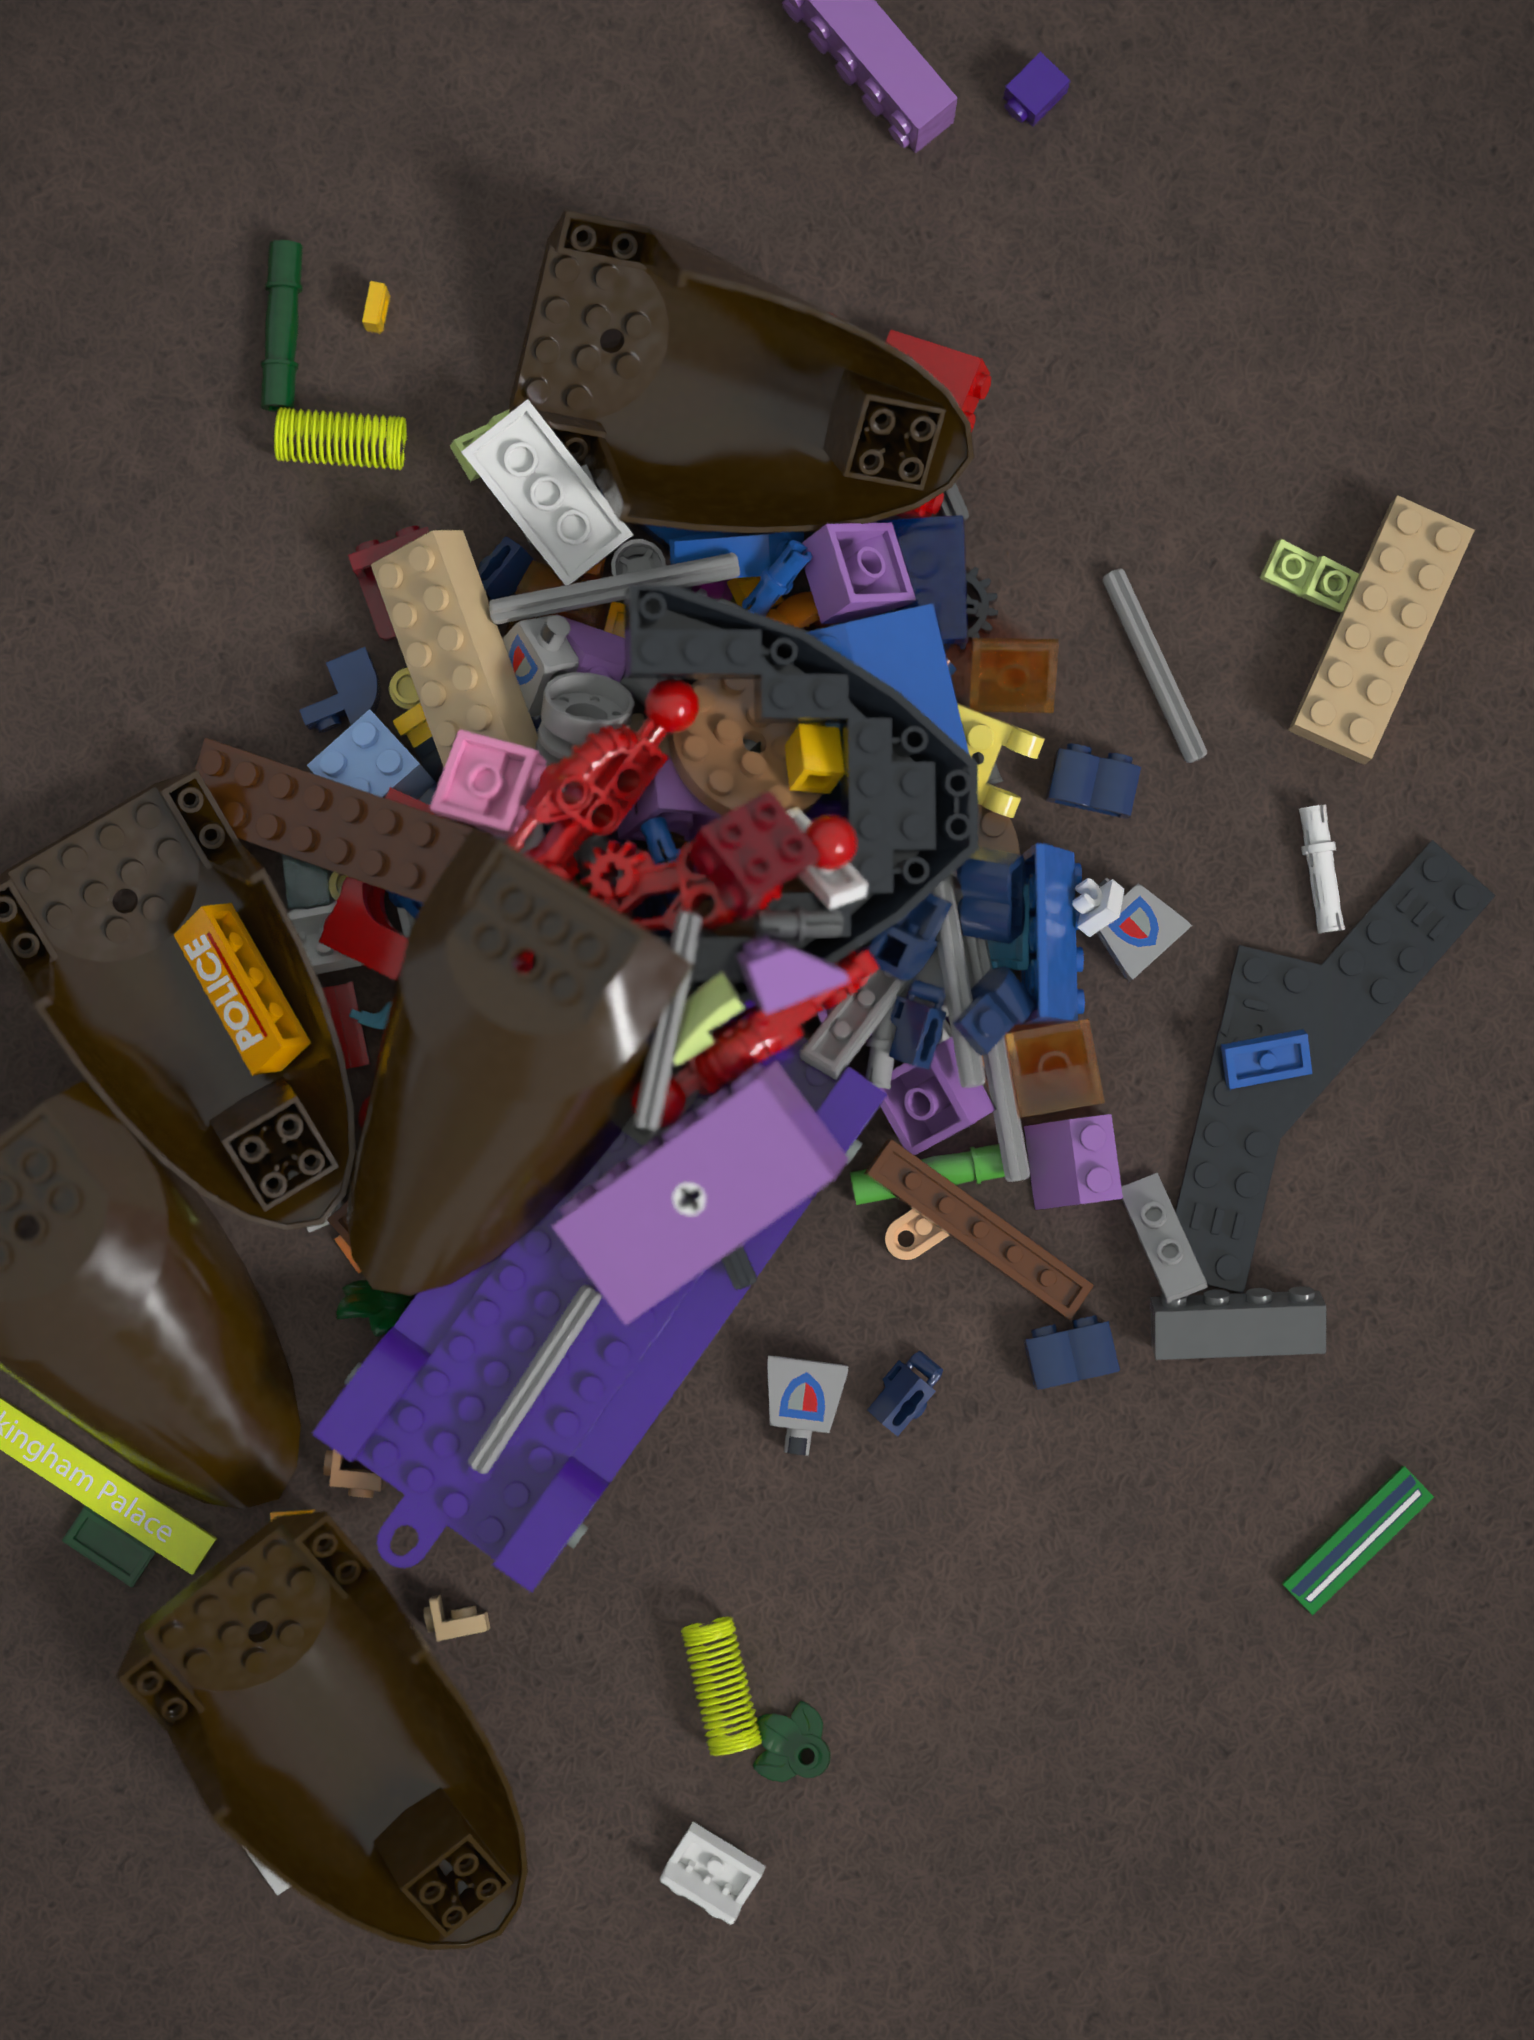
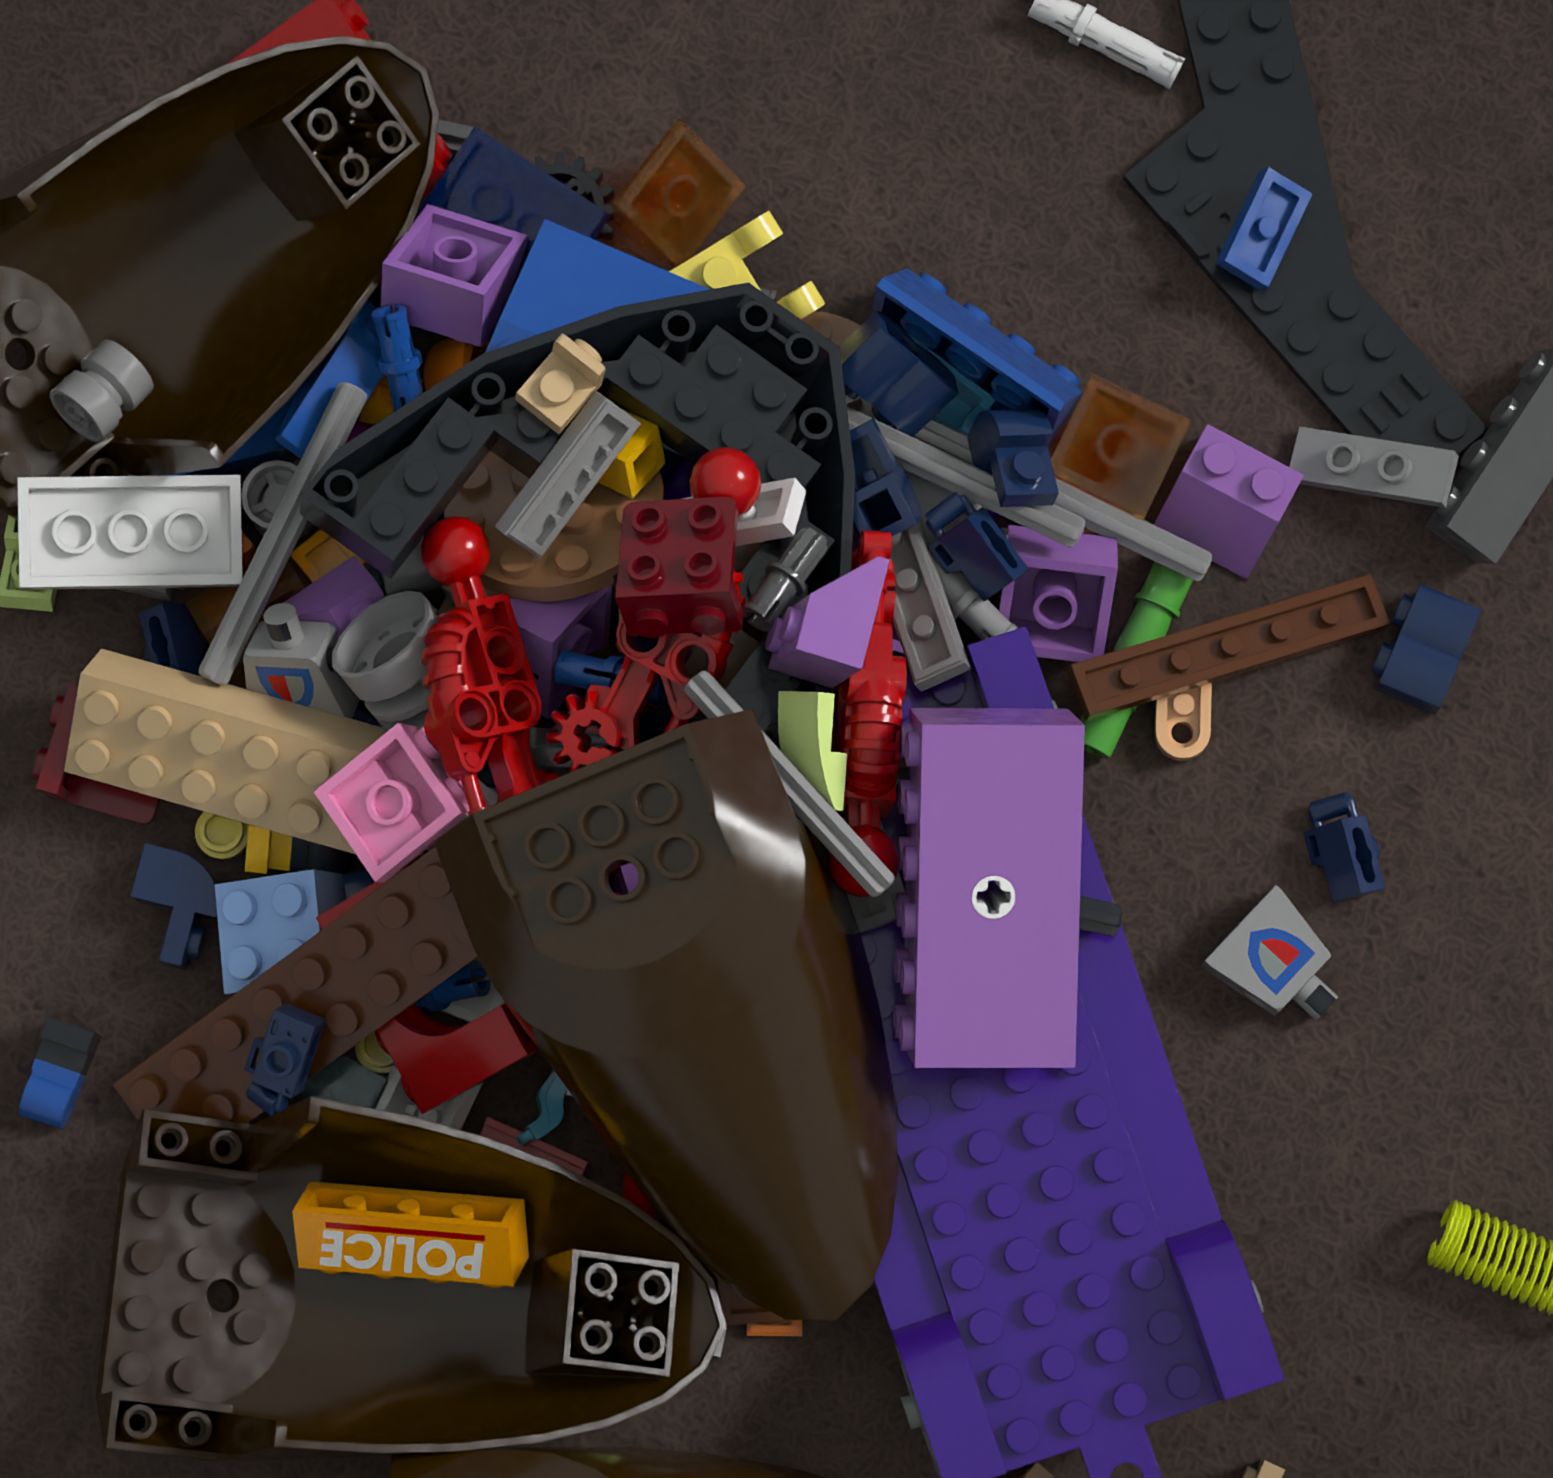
camera: 55 degrees left, 5 degrees down
(189, 699) = (58, 1072): none -> leg
(288, 832) = (284, 1057): none -> dark blue piece
(379, 1306) = (840, 1342): dark green plate -> none
(534, 1379) = (1057, 1216): light grey axle -> none
(631, 408) = (108, 383): none -> light grey wheel
(769, 740) = (567, 474): none -> light grey plate
(820, 694) = (562, 382): none -> tan bracket
(1093, 782) = (846, 199): dark blue brick -> none
(1097, 905) = (981, 281): white tile -> none
(1141, 931) = (1028, 265): light grey torso -> none
(1154, 665) = (771, 54): light grey axle -> none

